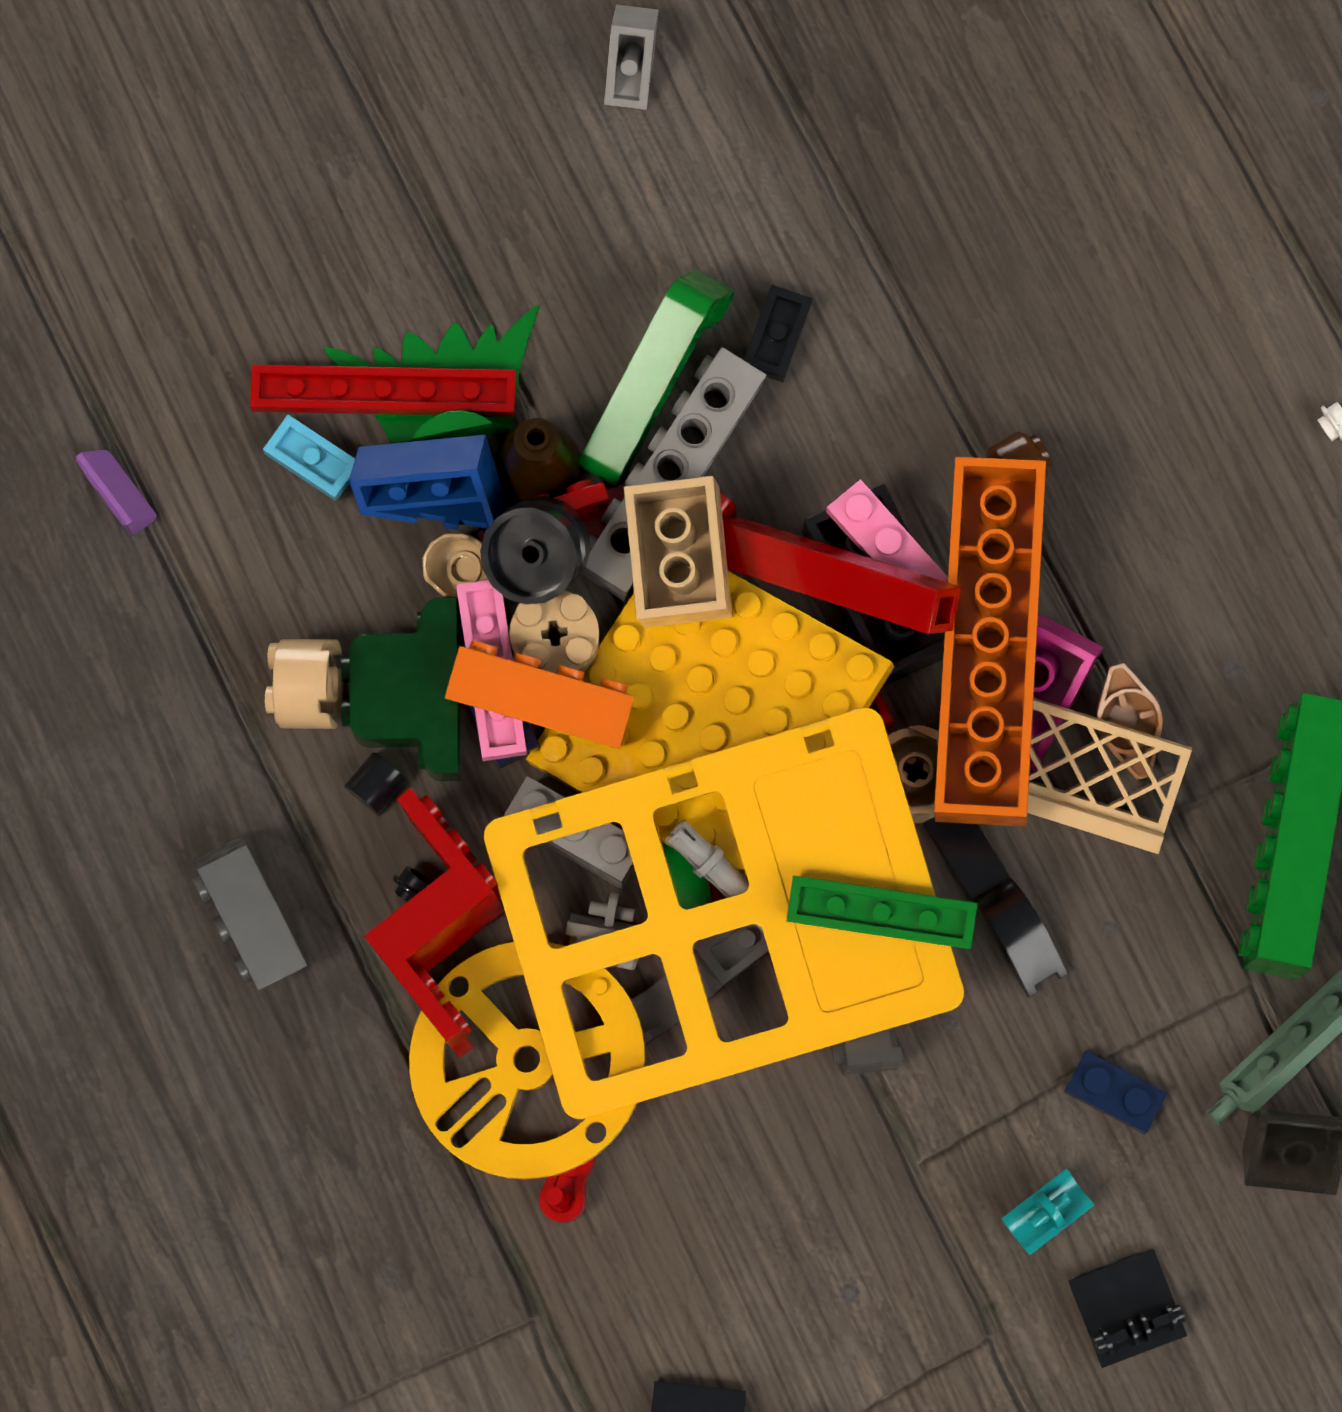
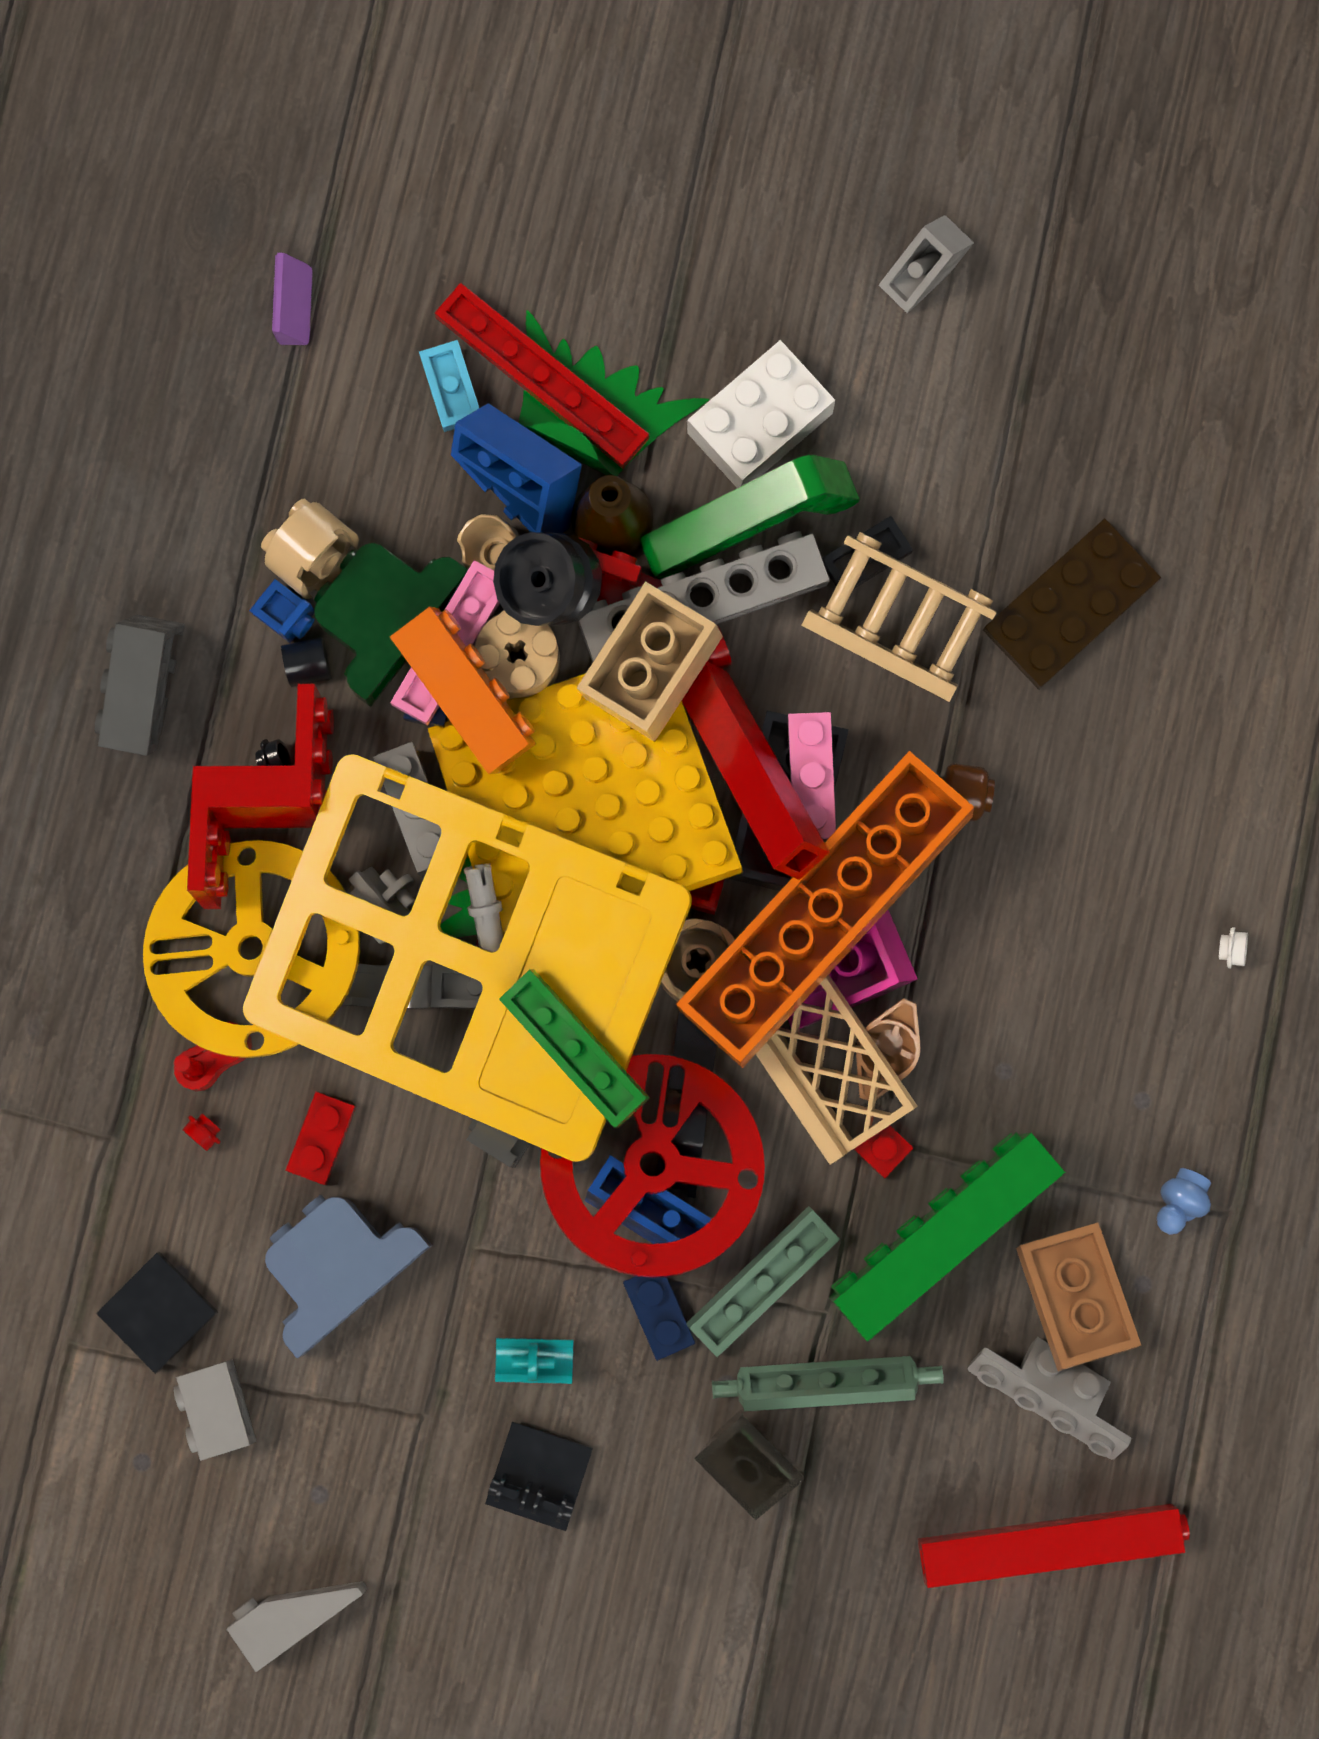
camera: 45 degrees right, 5 degrees up
(324, 755) = (284, 612): none -> blue bracket
(596, 285) = (760, 415): none -> white brick
(610, 1248) = (202, 1131): none -> red plate
(714, 1174) = (320, 1138): none -> red plate
(816, 1269) = (335, 1266): none -> sand blue brick
(876, 393) = (865, 638): none -> tan fence
(976, 245) = (1071, 603): none -> dark brown plate
(1018, 1059) = (596, 1234): none -> red piece
(1044, 1010) = (656, 1217): none -> blue brick
(1180, 996) = (762, 1281): none -> sand green plate
(1191, 811) = (884, 1151): none -> red plate

